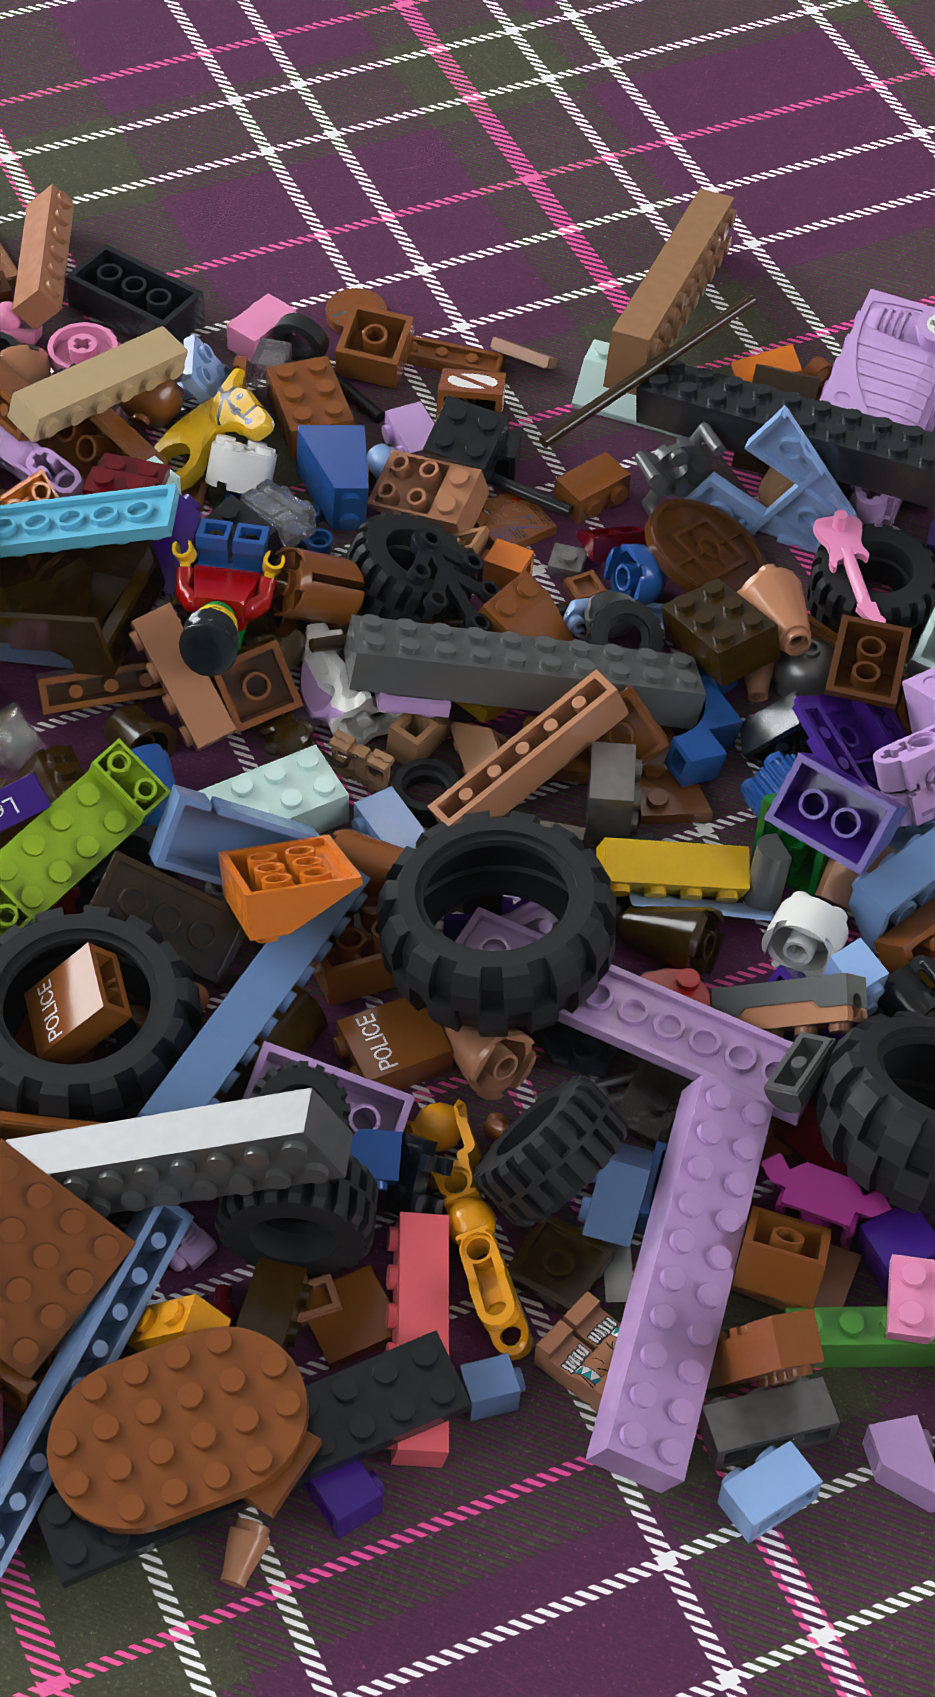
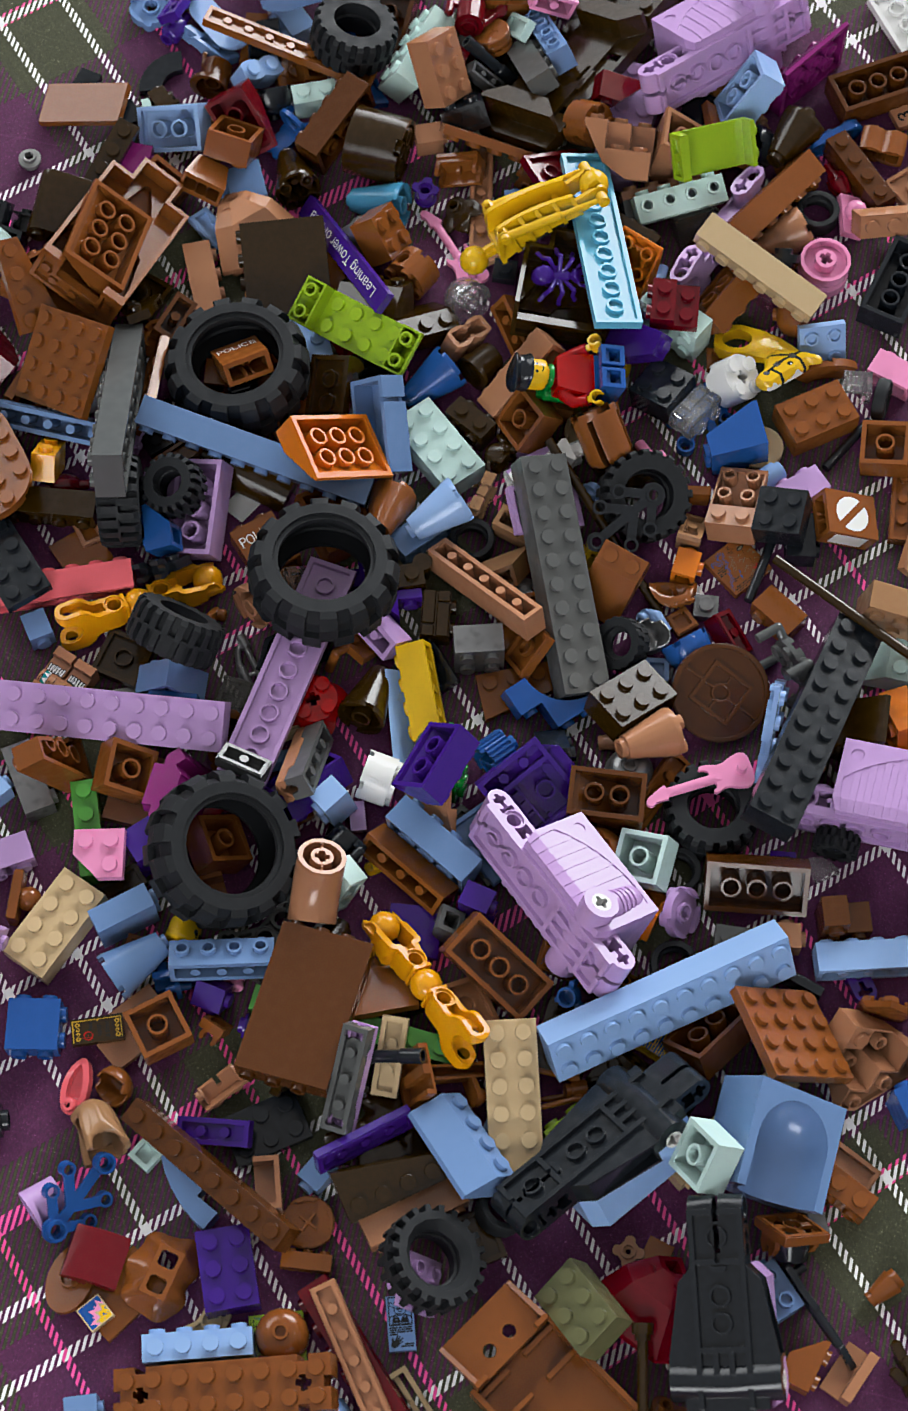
camera: 85 degrees right, 15 degrees up
(45, 592) = (555, 275): none -> dark purple animal
(87, 735) = (465, 337): none -> nougat brick
(230, 757) = (471, 423): none -> dark brown brick
(393, 790) = (439, 512): none -> light blue cone
(552, 577) = (673, 594): none -> dark orange hat

